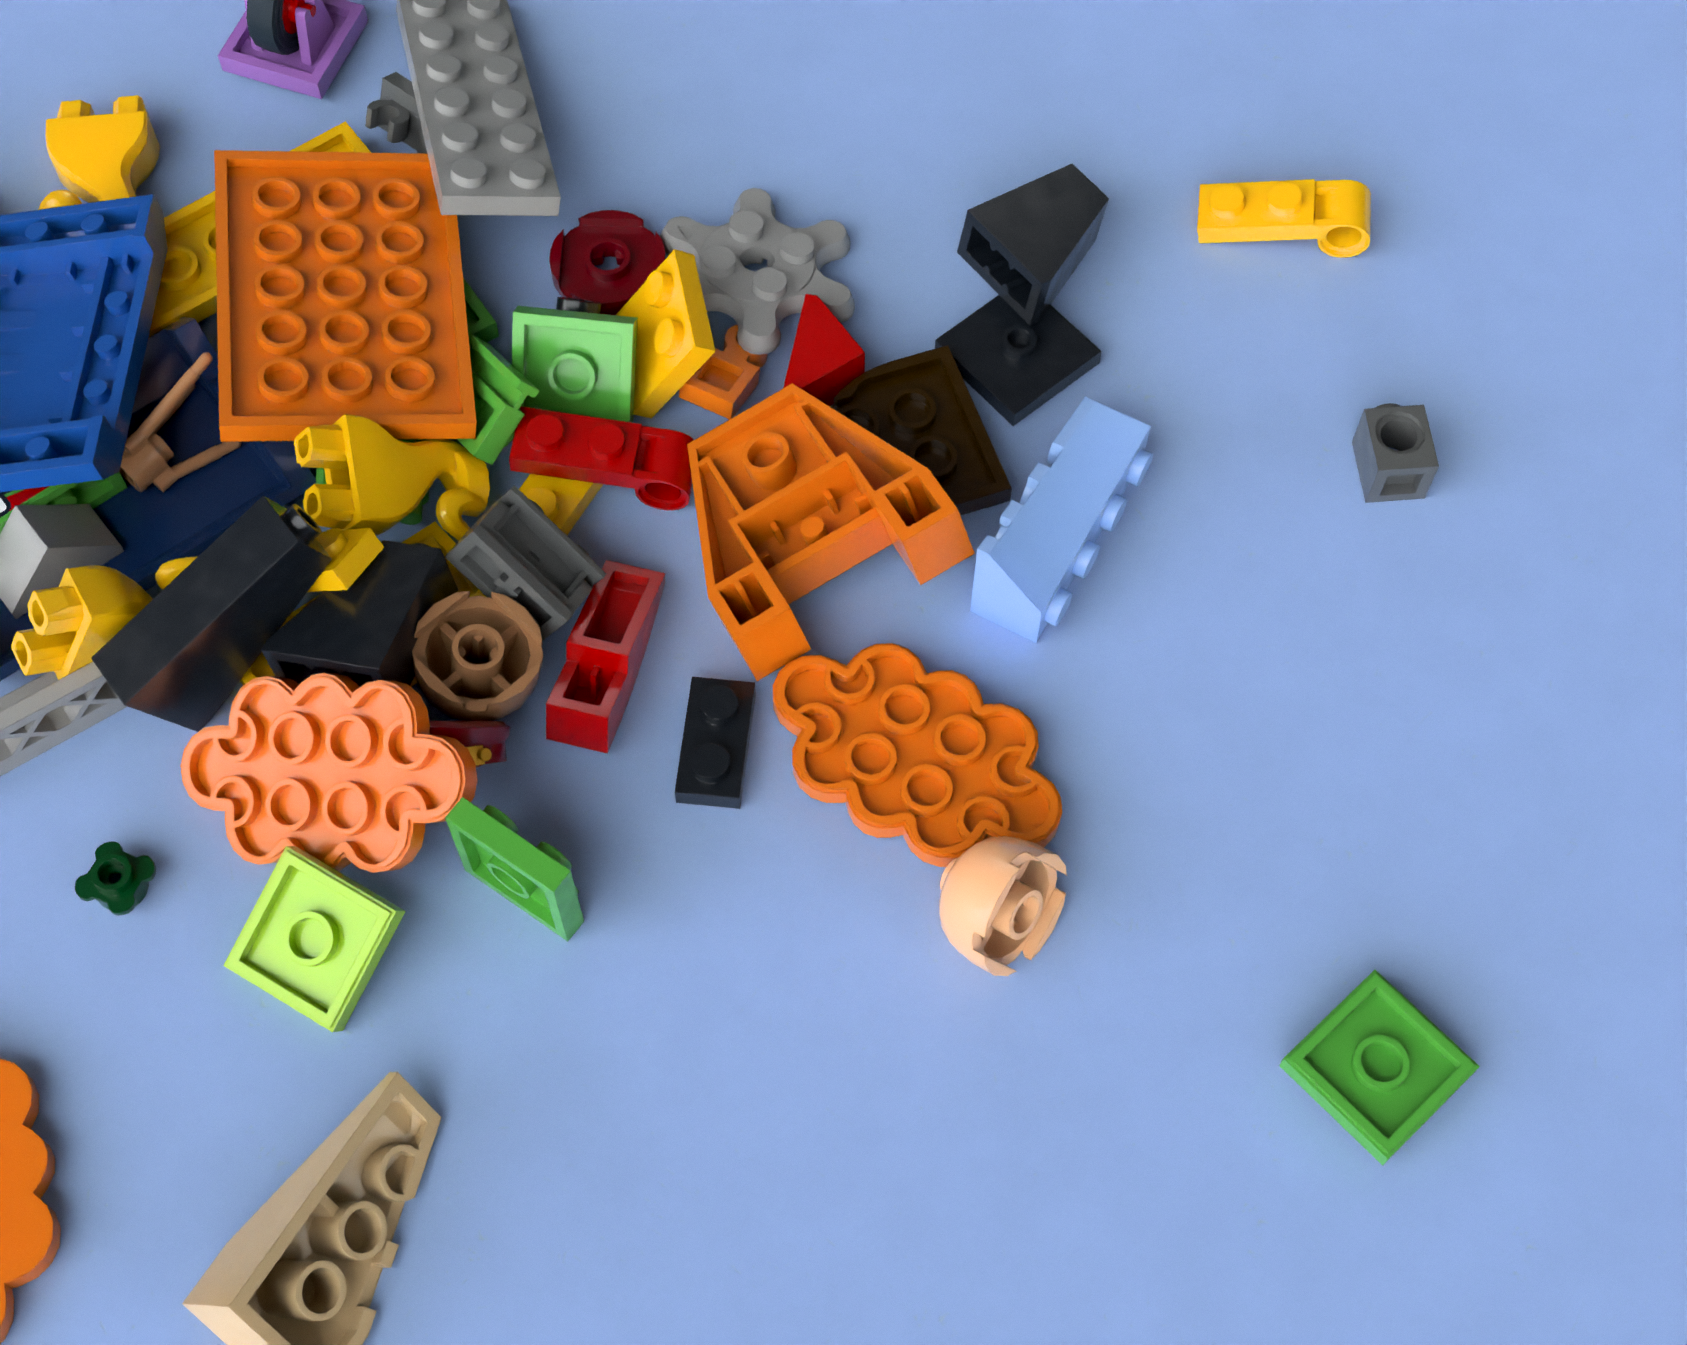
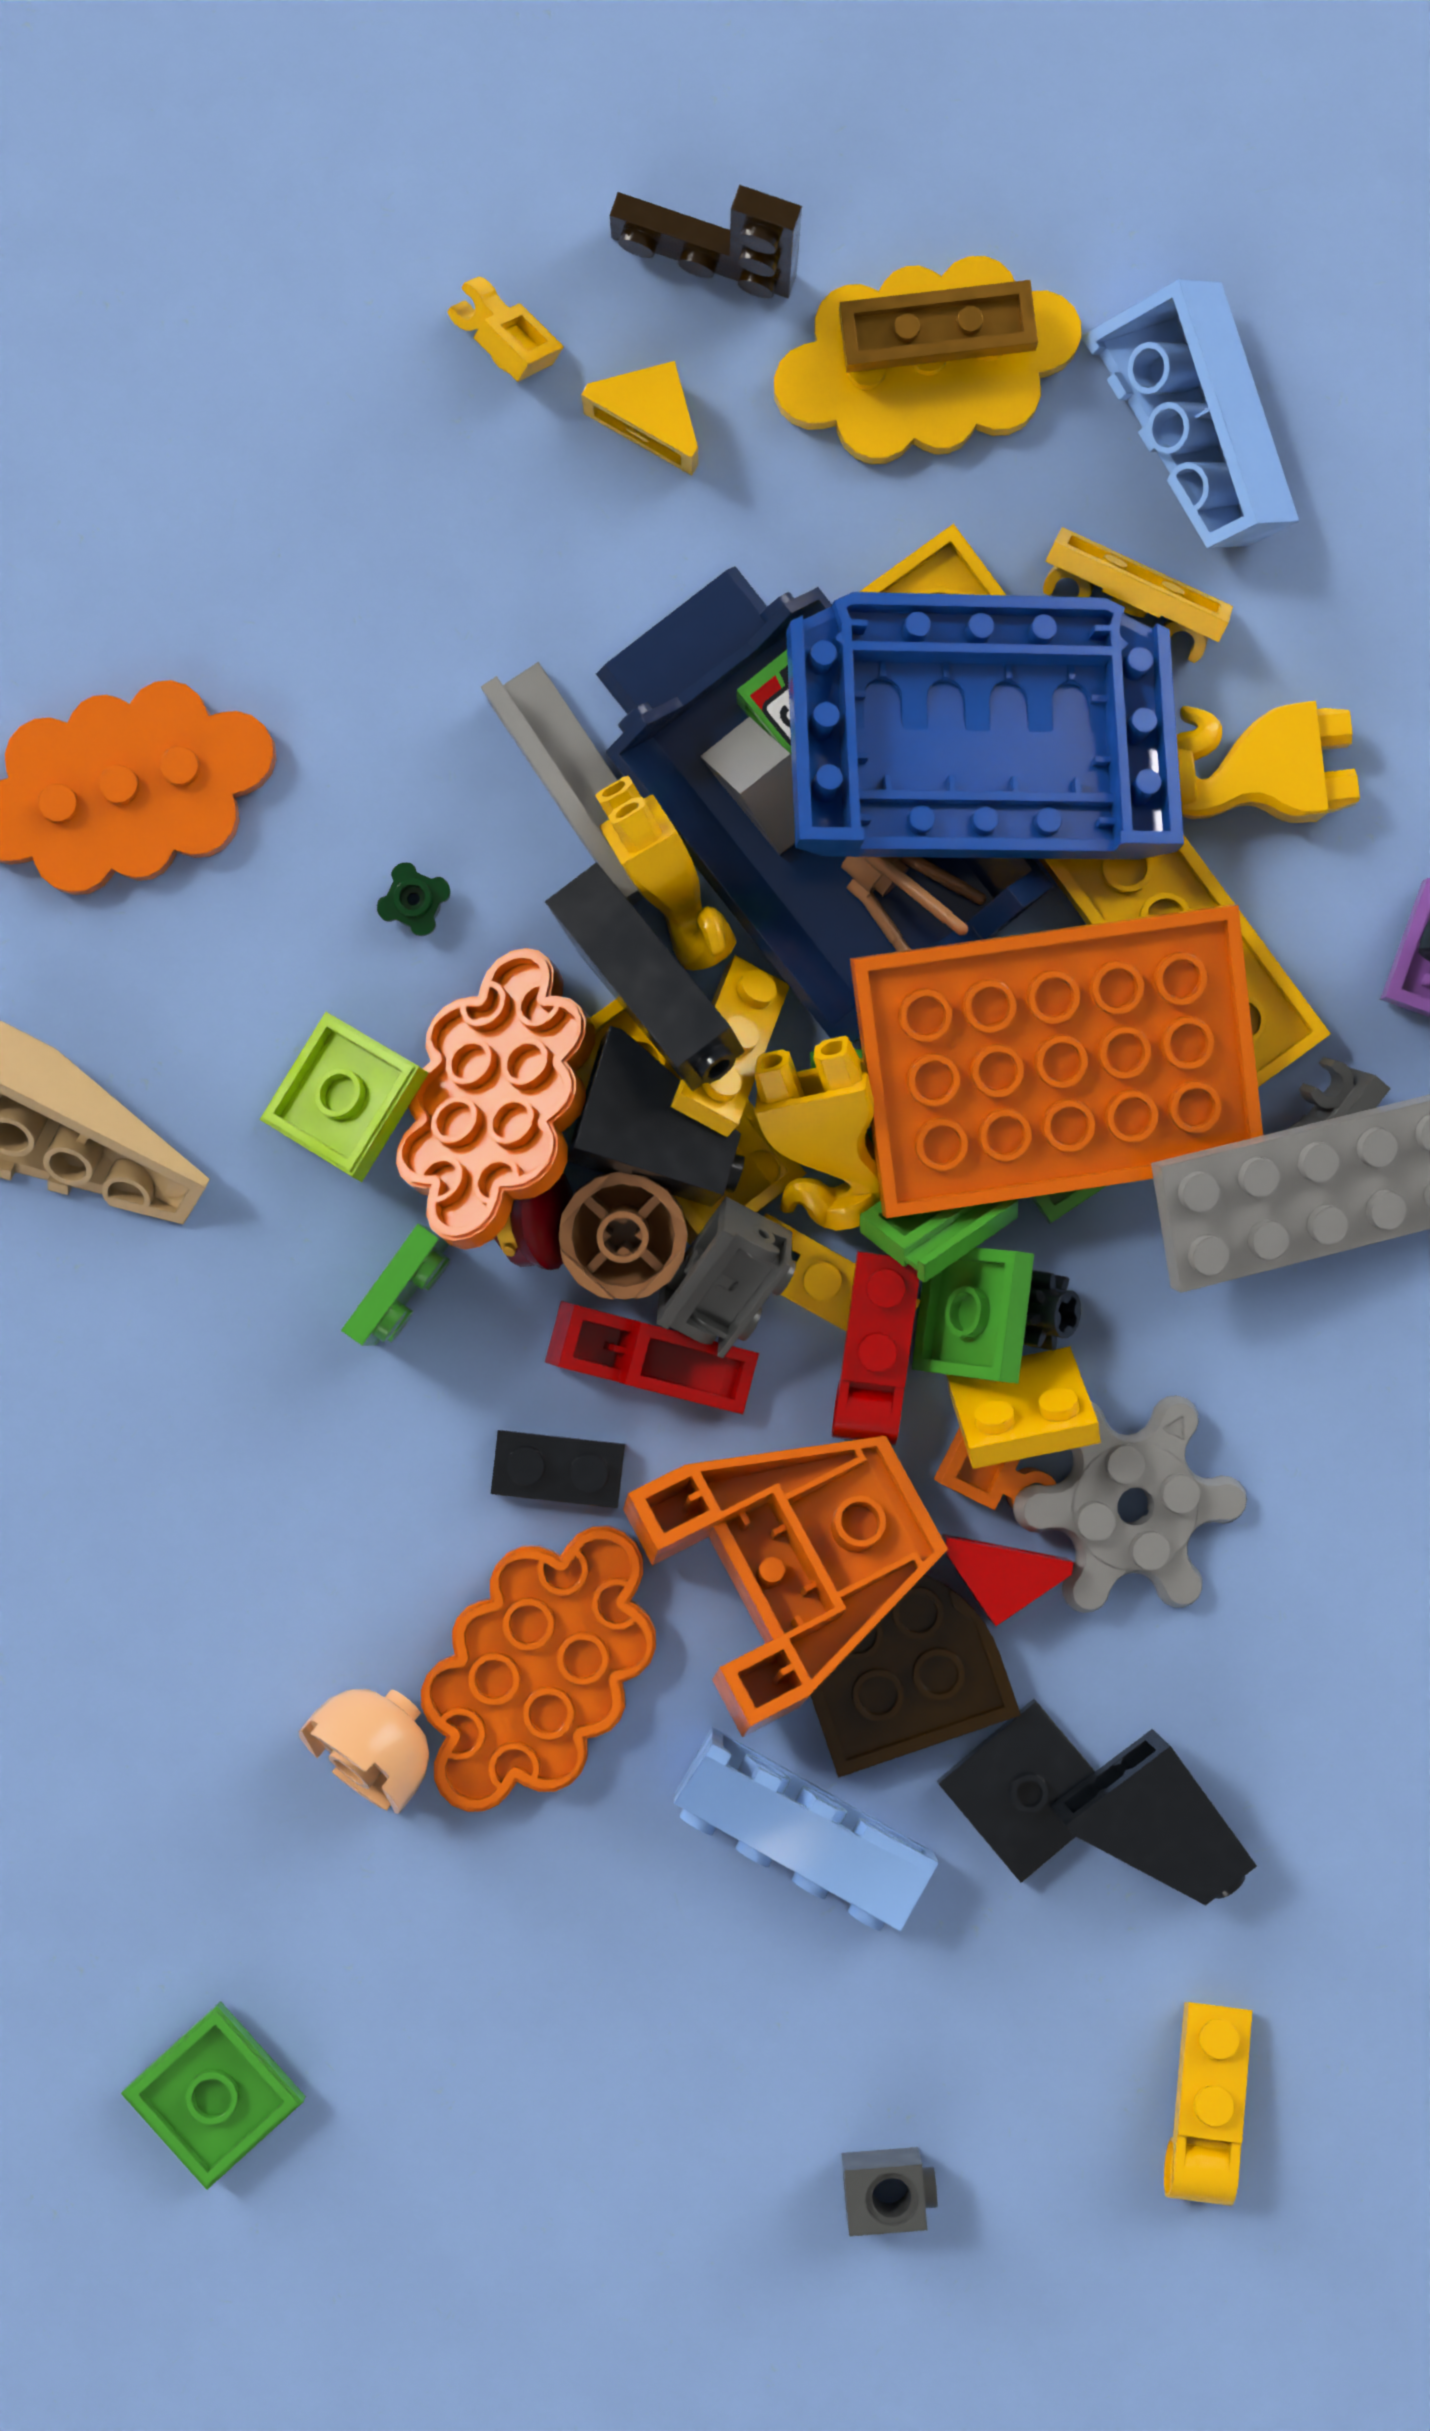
camera: 90 degrees right, 25 degrees up
(602, 236) = (1163, 1367): dark red plate -> none

